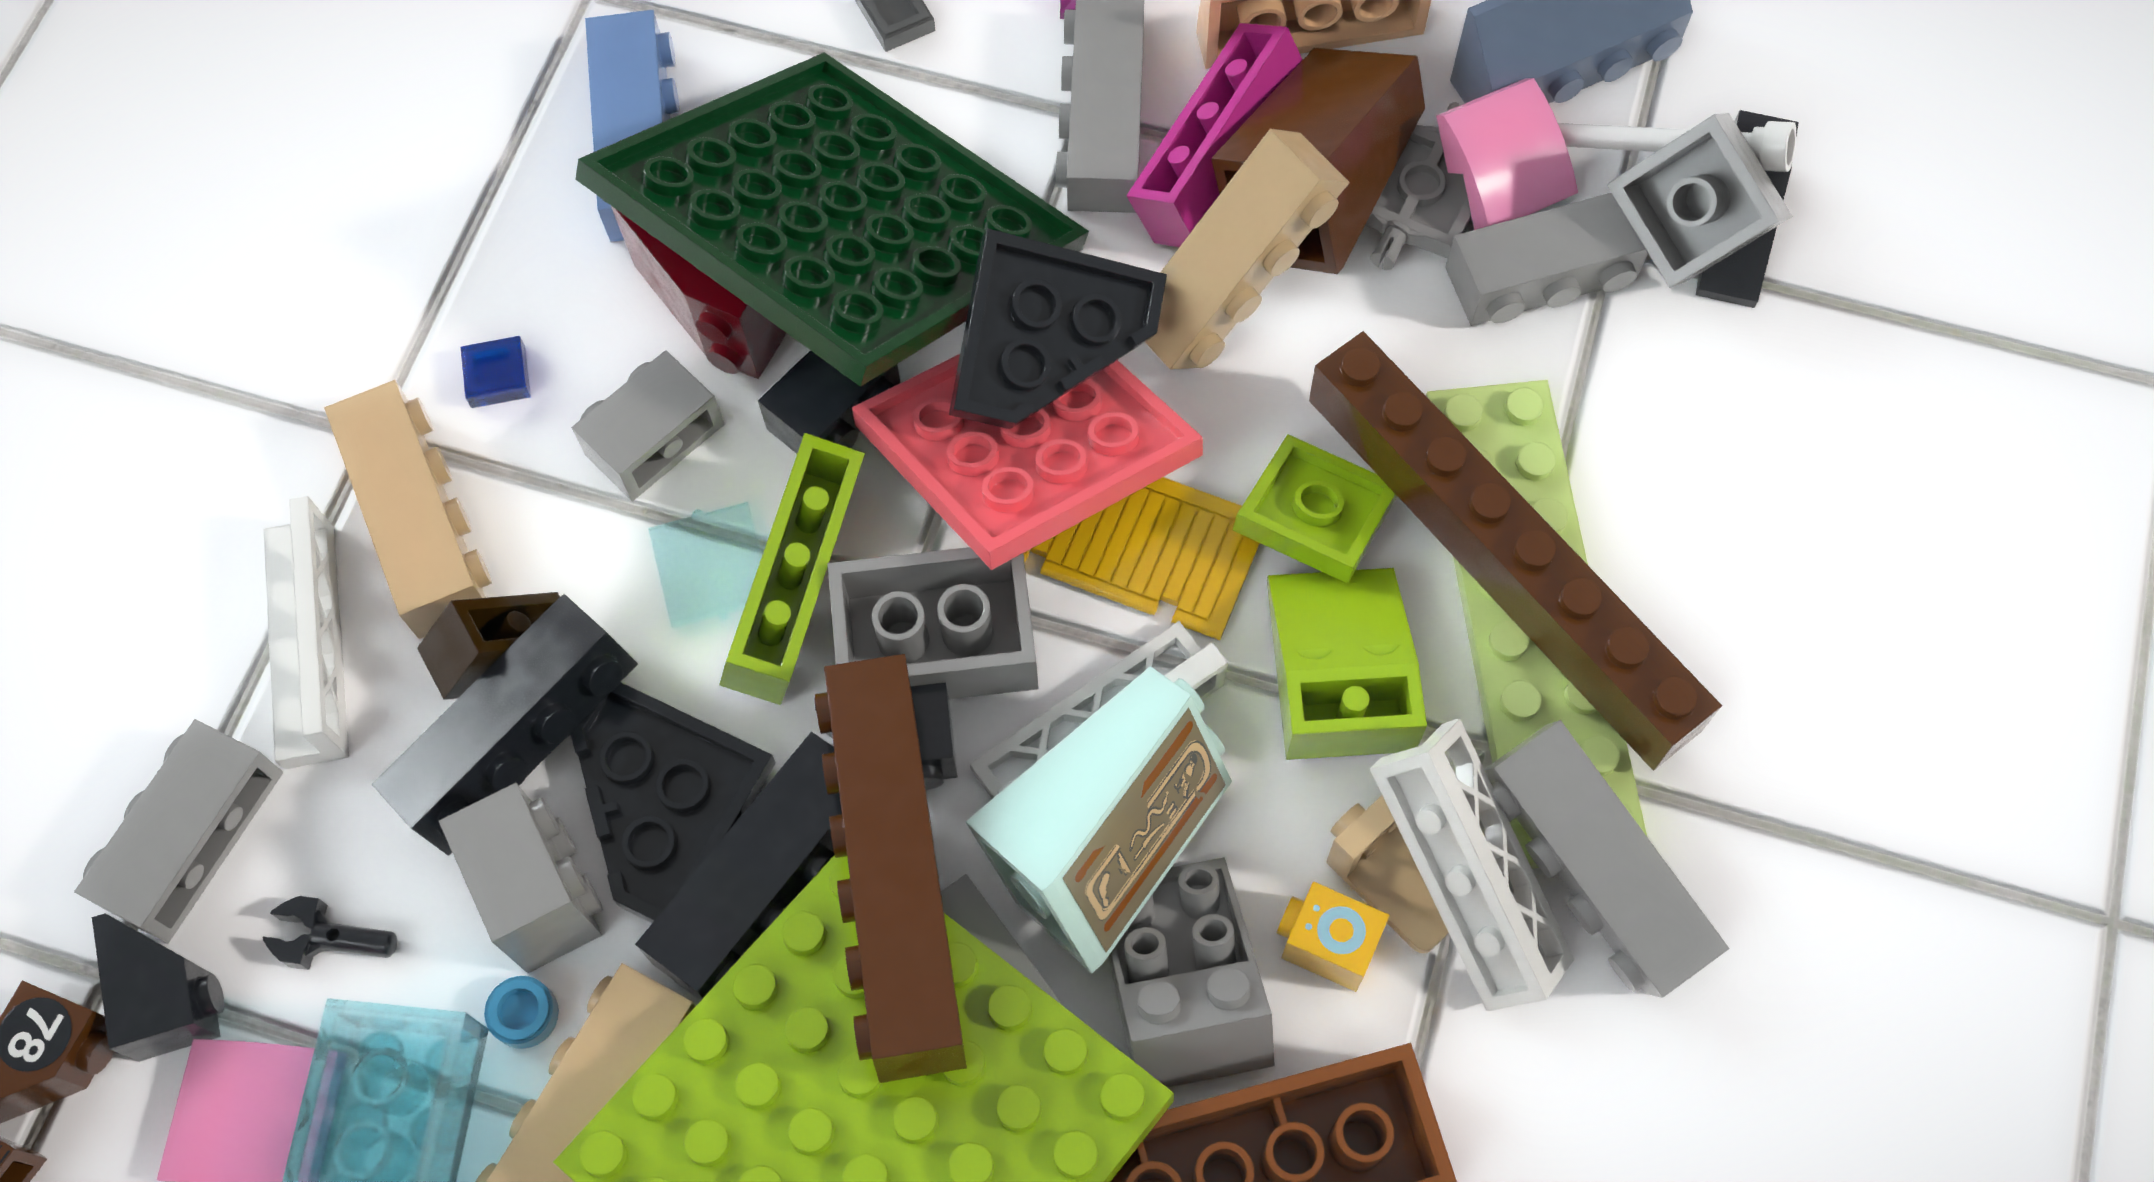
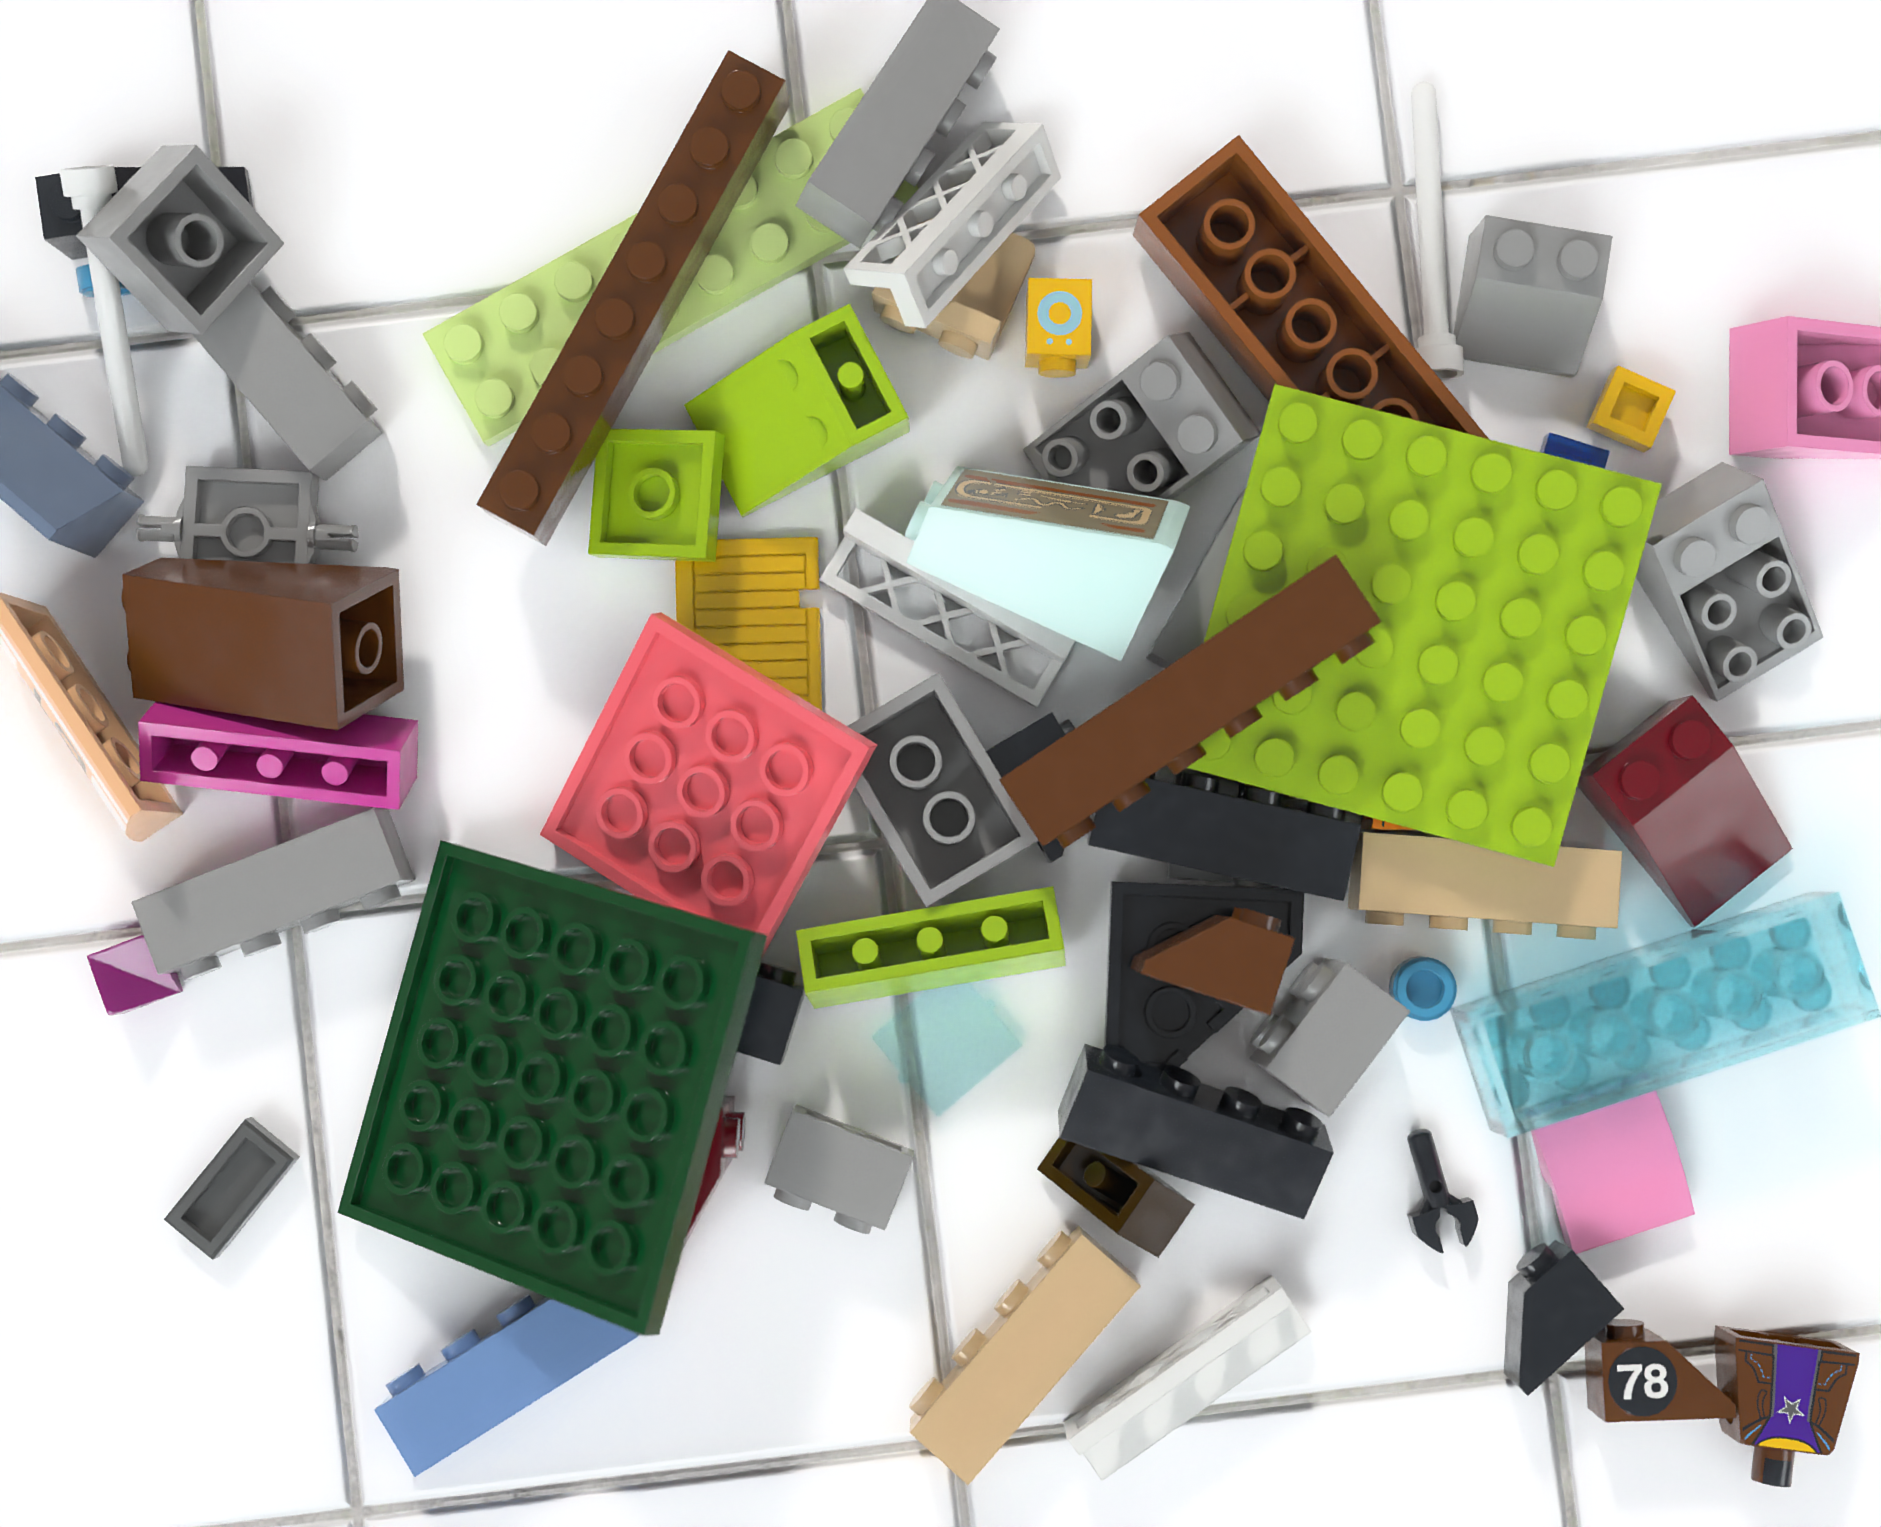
camera: 115 degrees left, 20 degrees up
(179, 830) = (1412, 1379): light grey brick -> none
(495, 371) = (840, 1356): clear blue tile -> none
(639, 790) = (1224, 958): none -> reddish brown slope
(1045, 325) = (599, 810): black plate -> none
(1242, 246) = (431, 660): tan brick -> none
(1507, 153) = (185, 454): bright pink slope -> none

